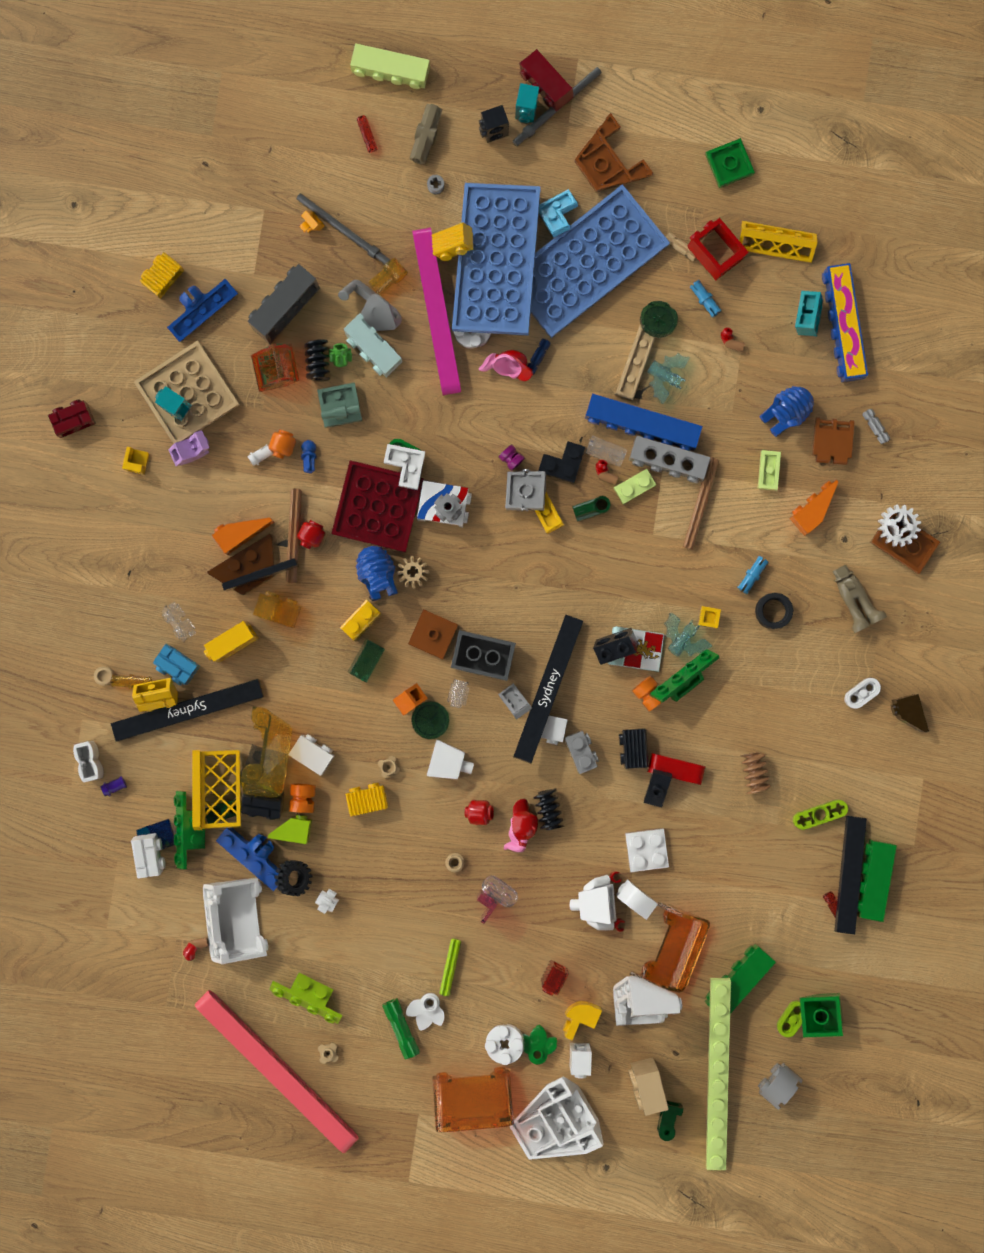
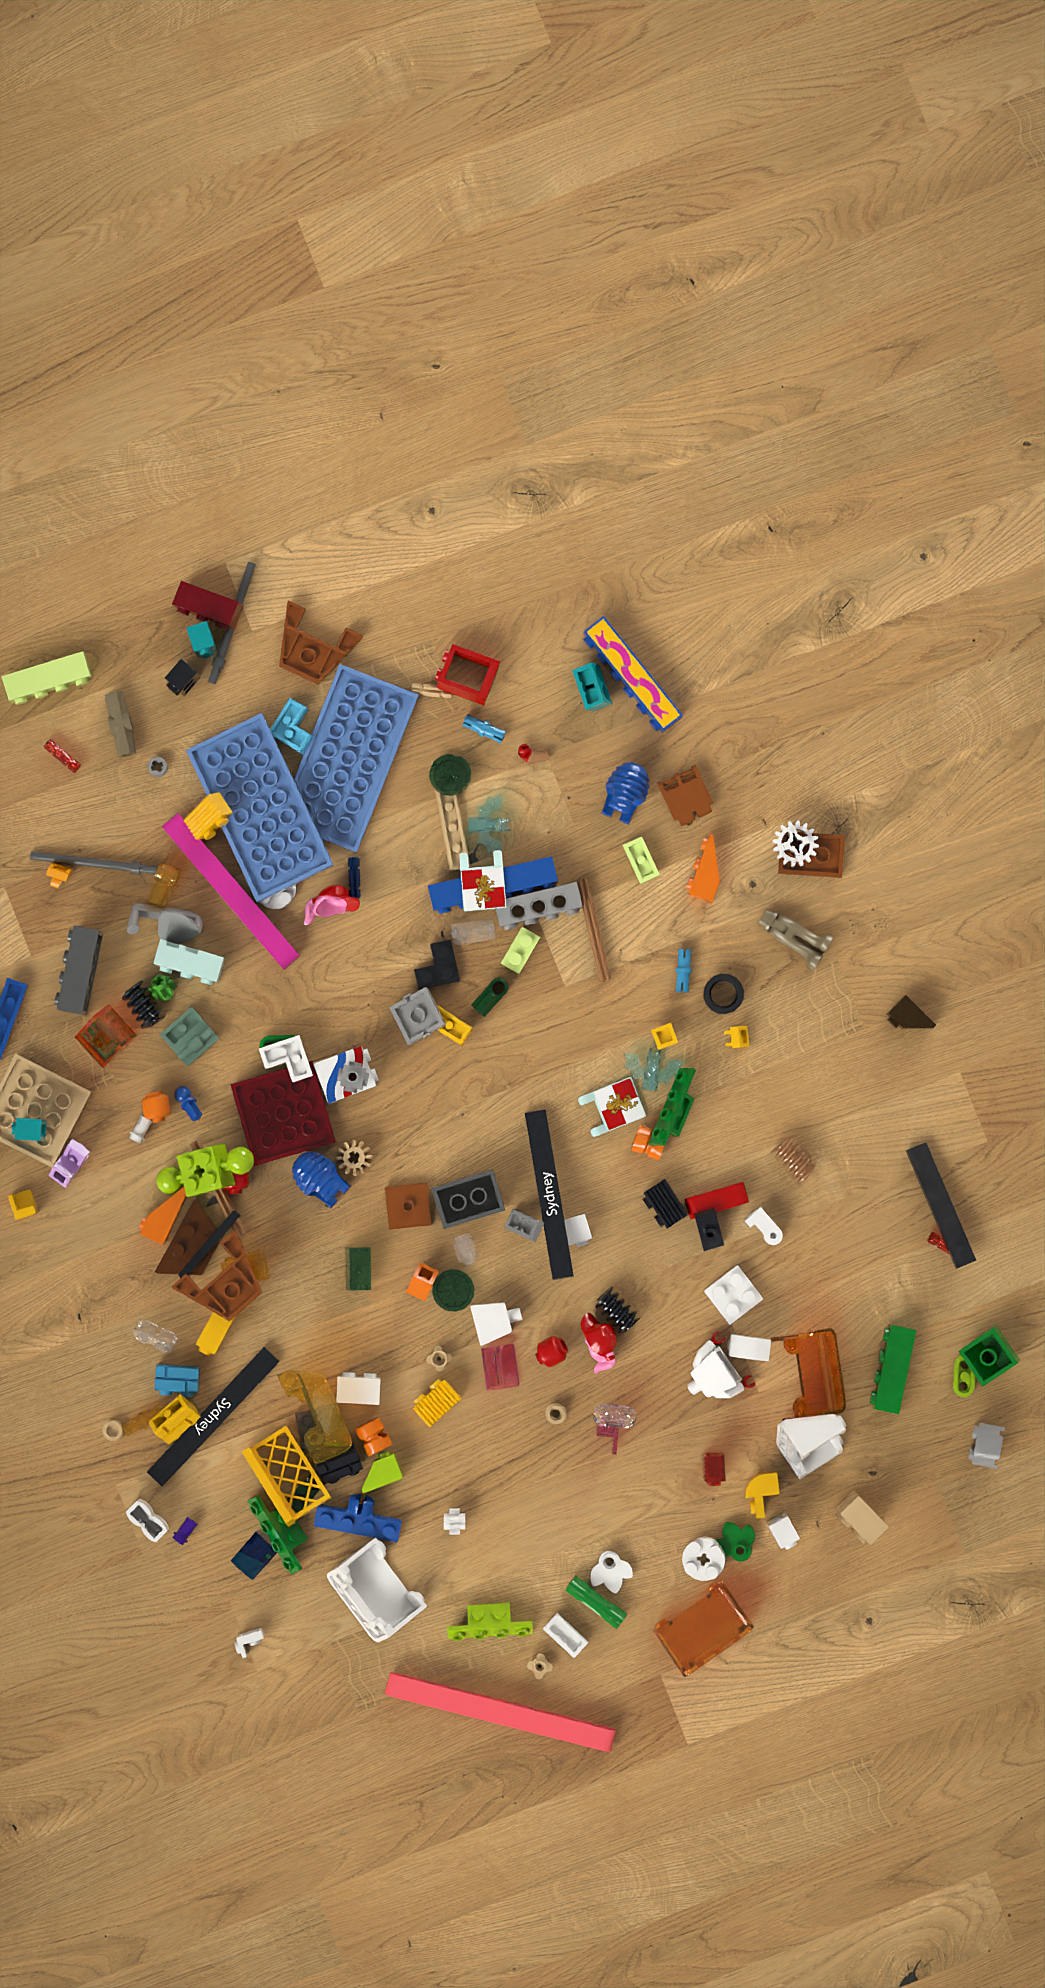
camera: 30 degrees left, 0 degrees up
(116, 899) = (251, 1637): none -> white bracket
(147, 855) = (256, 1577): white brick -> none
(192, 946) = (350, 1640): arm -> none
(257, 617) = (230, 1289): none -> dark orange wing
(291, 514) = (205, 1170): none -> lime brick
(303, 878) = (400, 1522): black tyre -> none
(360, 620) = (331, 1233): yellow brick -> none
(362, 1040) = (565, 1635): none -> white plate
(432, 801) = (500, 1367): none -> clear pink panel
(450, 967) = (609, 1516): lime axle -> none
(511, 457) = (380, 991): magenta wheel -> none
(558, 1123) = (796, 1604): white wedge -> none
(580, 751) = (616, 1238): light grey brick -> none
(603, 472) = (483, 955): arm -> none
(615, 646) = (590, 1116): black brick -> none
(636, 418) = (483, 886): none -> flag
(667, 1120) = (899, 1540): dark green leg -> none
(704, 817) = (764, 1223): none -> white leg
(718, 1073) = (922, 1468): yellowish green plate -> none
(729, 163) = (431, 582): green plate -> none
(767, 651) = (739, 1037): none -> yellow tile
(781, 235) = (520, 628): yellow fence -> none
(835, 815) = (886, 1149): lime beam -> none
(862, 693) = (853, 1024): white plate -> none
(876, 426) = (720, 757): light grey axle -> none
(876, 880) = (968, 1196): green brick -> none

